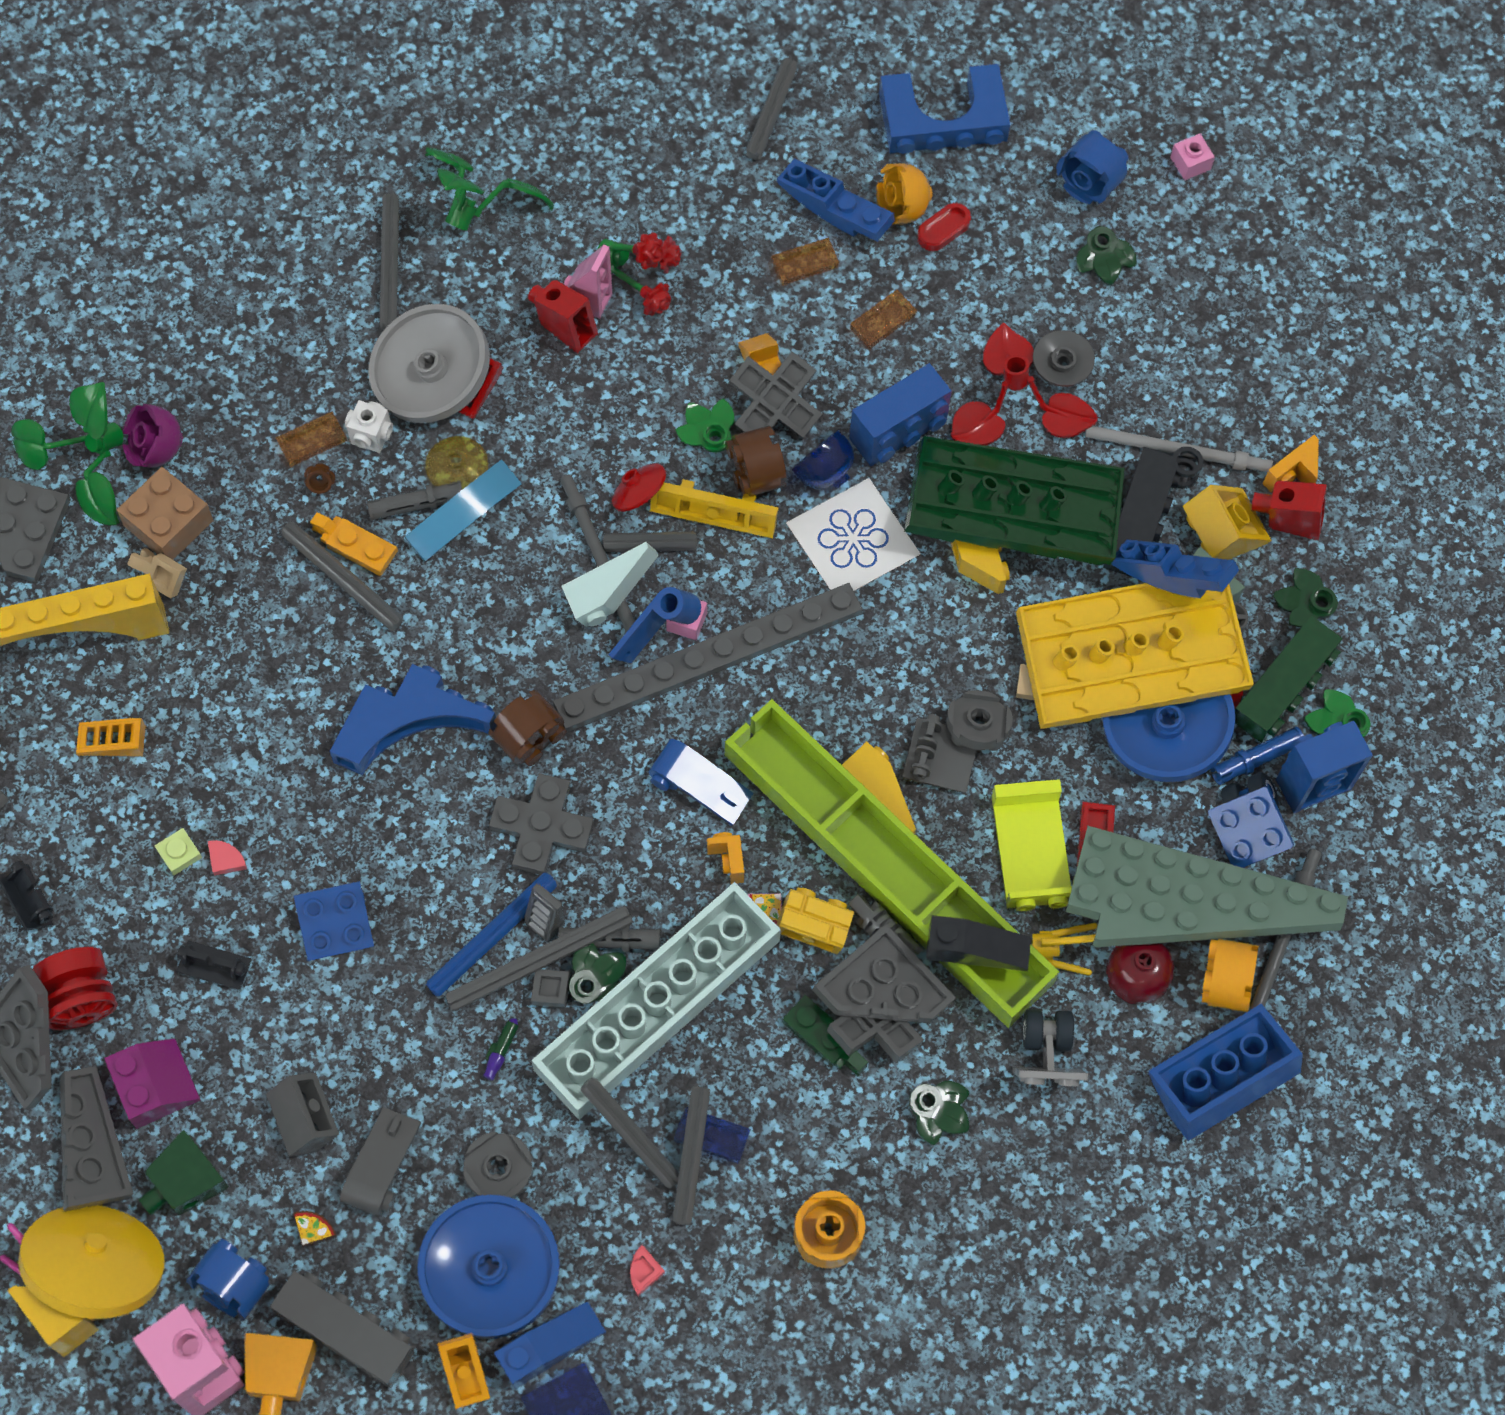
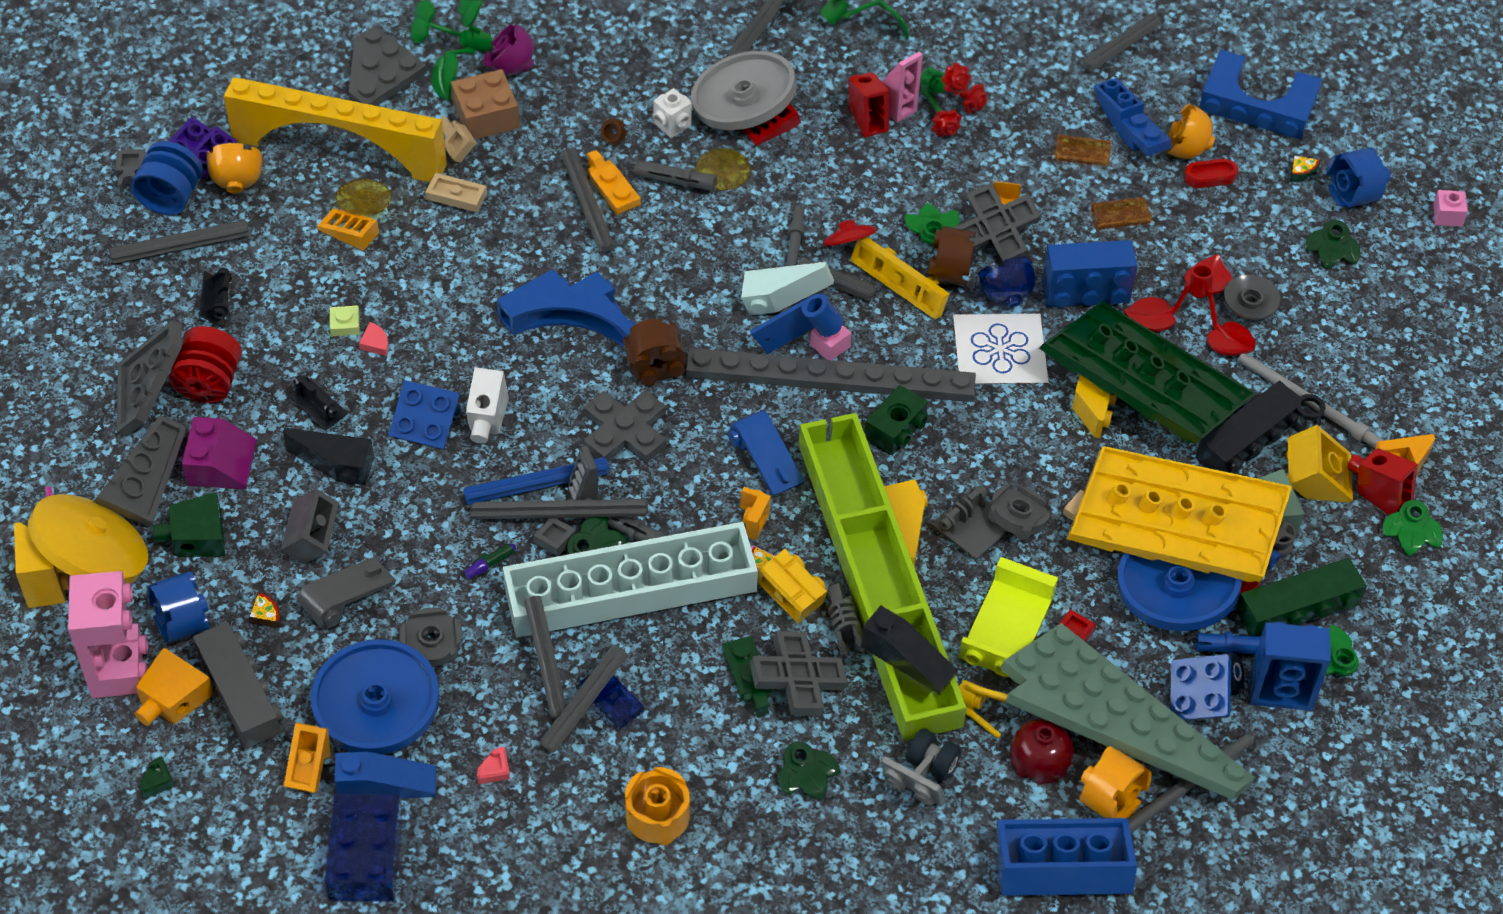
camera: 30 degrees right, 15 degrees down
(102, 685) = (363, 197): none -> clear yellow dish
(199, 637) = (456, 192): none -> tan plate
(276, 1017) = (337, 456): none -> black slope
(311, 439) = (626, 106): clear orange tile -> none
(392, 869) = (486, 403): none -> white torso
(462, 510) = (706, 193): dark azure slope -> none
(806, 660) = (896, 420): none -> dark green brick
(884, 983) = (817, 648): dark grey plate -> none
(1028, 176) = (1303, 167): none -> tile
(1169, 570) = (1243, 464): blue slope -> none
(1302, 598) = (1360, 551): dark green plate -> none
(1341, 548) = (1413, 531): none -> green plate

